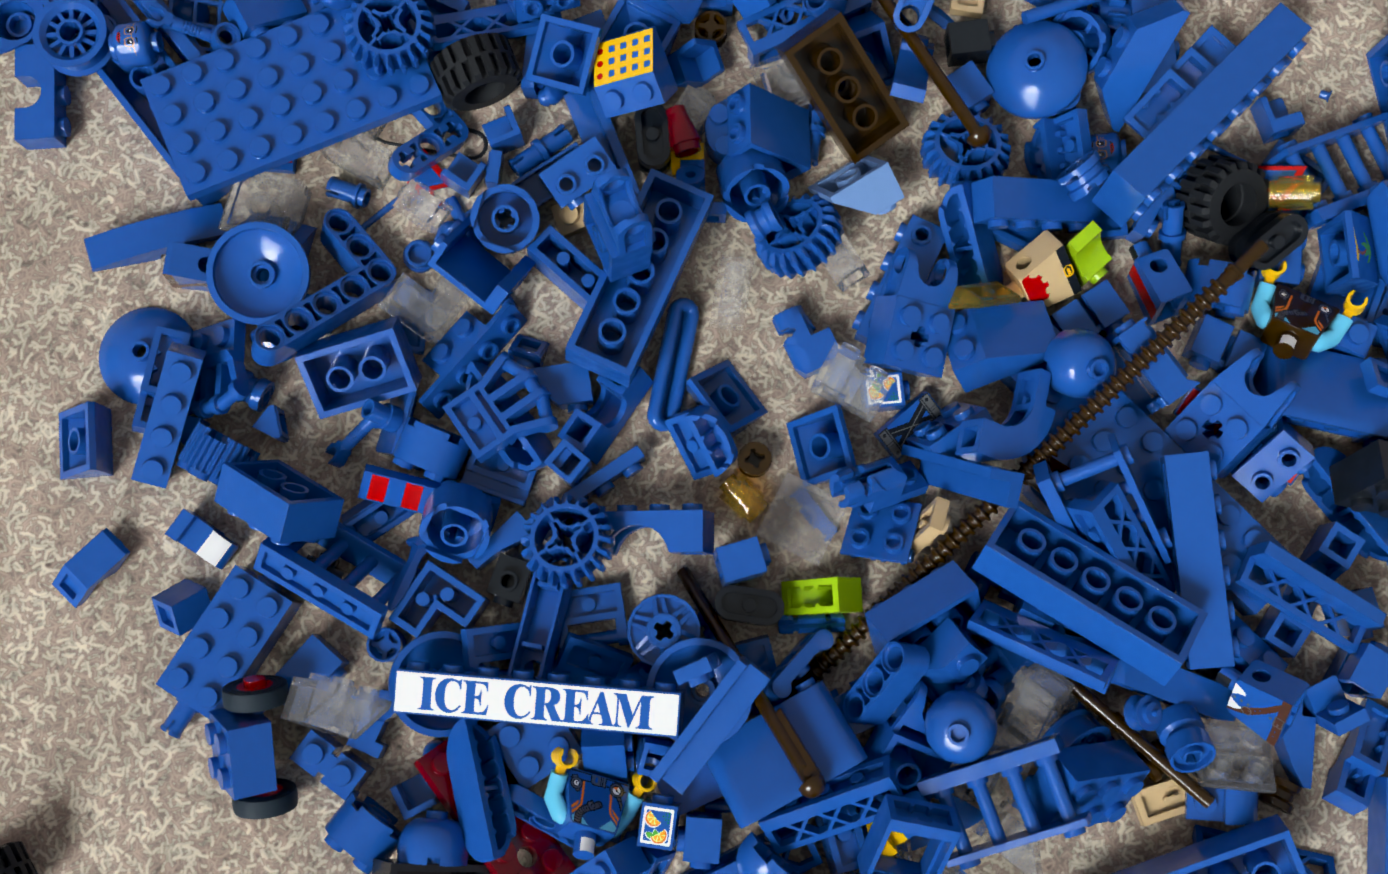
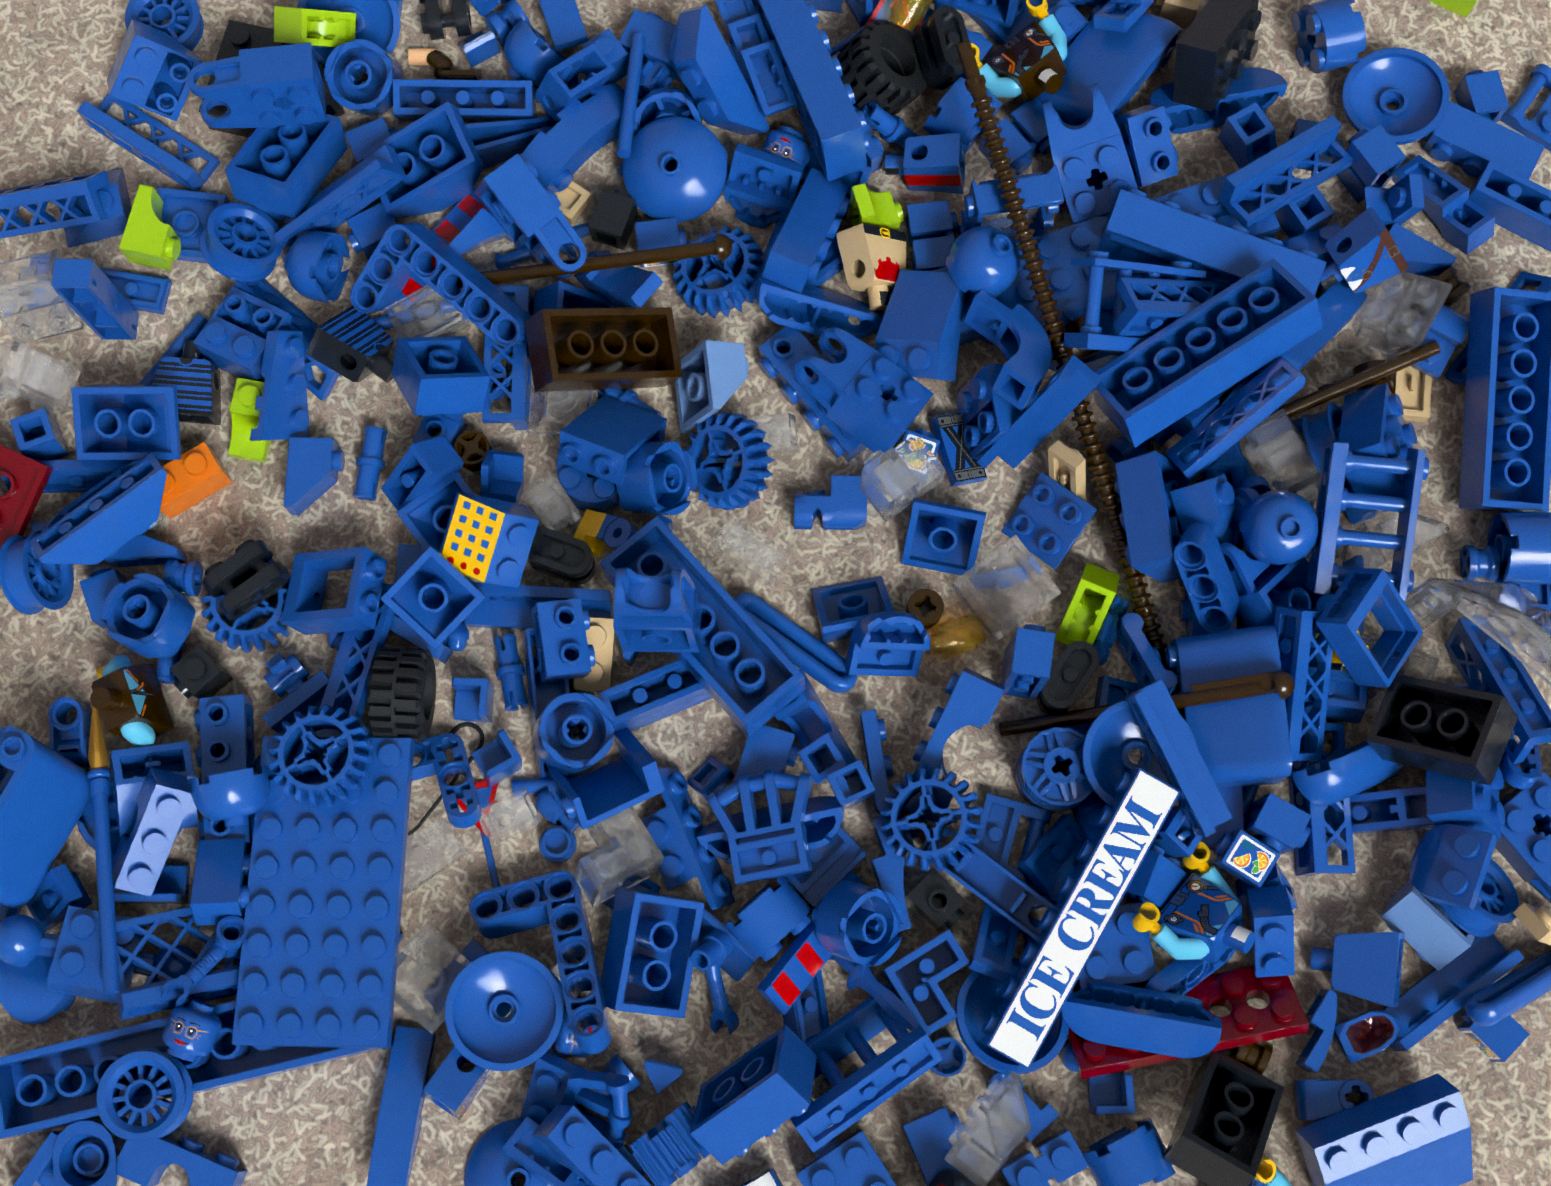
camera: 65 degrees left, 5 degrees down
(355, 194) = (454, 886): blue pin -> none
(433, 841) = (1171, 1090): blue cylinder -> none
(494, 168) = (515, 730): blue tile -> none
(682, 133) = (571, 520): dark red cone -> none
(698, 670) = (1125, 740): blue plate -> none
(763, 220) = (699, 484): blue wheel -> none
(877, 484) = (1007, 501): blue plate -> none
(982, 296) = (876, 317): clear yellow slope -> none
(1084, 175) = (806, 172): blue wheel -> none
(1143, 712) = (1331, 364): blue wheel -> none
(1185, 739) = (1369, 339): blue wheel -> none

